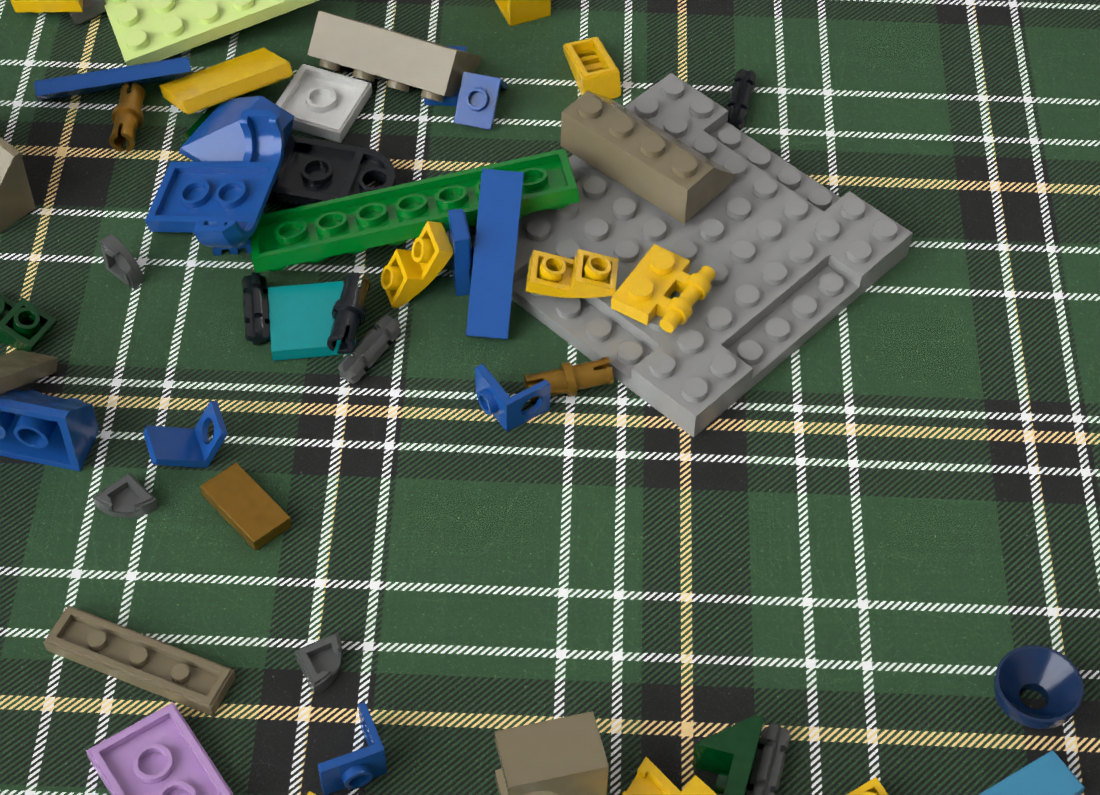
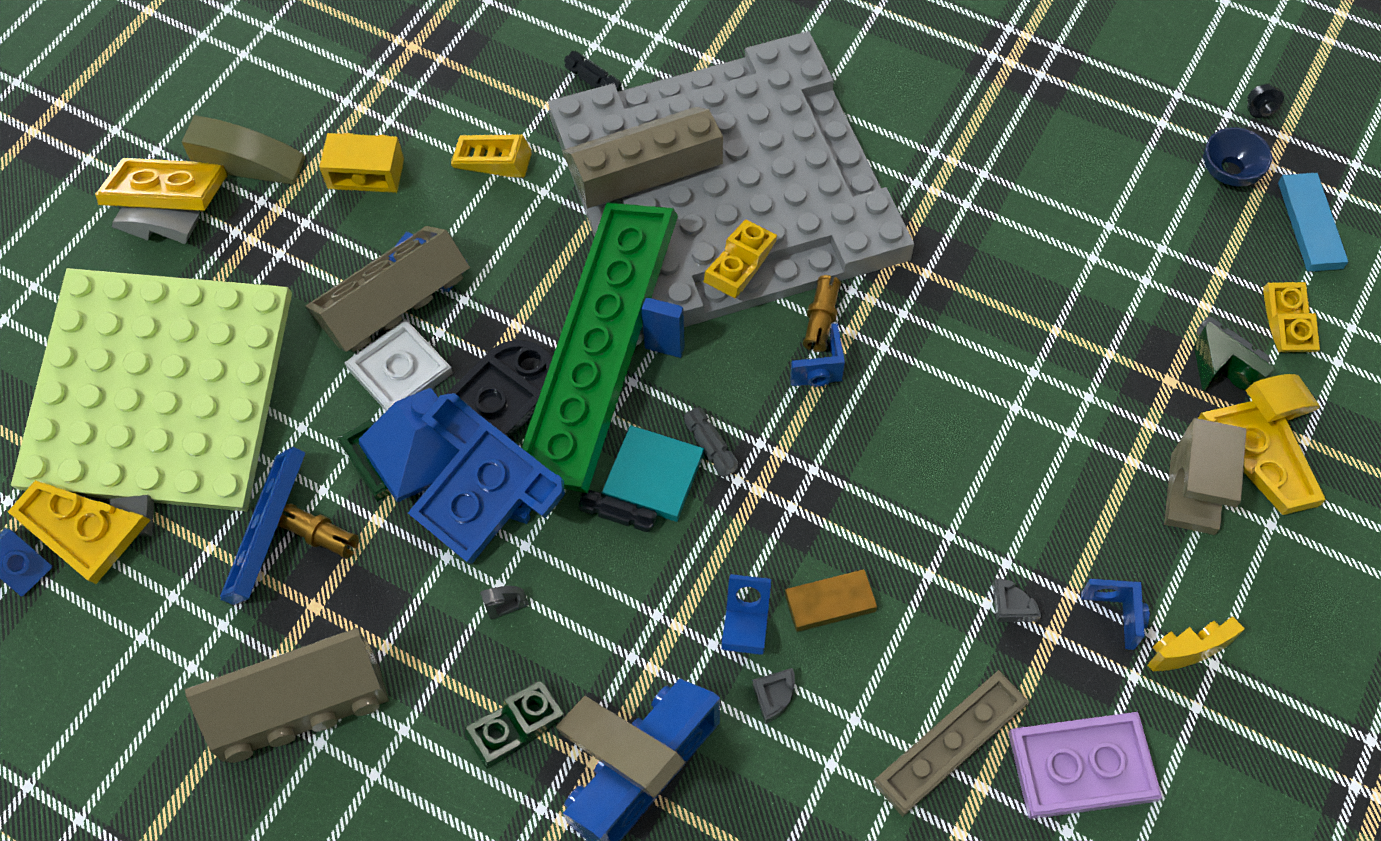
camera: 60 degrees left, 10 degrees up
(226, 80) = (333, 429): yellow tile -> none
(348, 313) = (676, 438): black pin -> none
(416, 268) = (653, 365): yellow slope -> none
(478, 100) = (481, 247): bracket -> none
(494, 254) = (701, 311): blue tile -> none
(653, 282) = (781, 213): yellow plate -> none

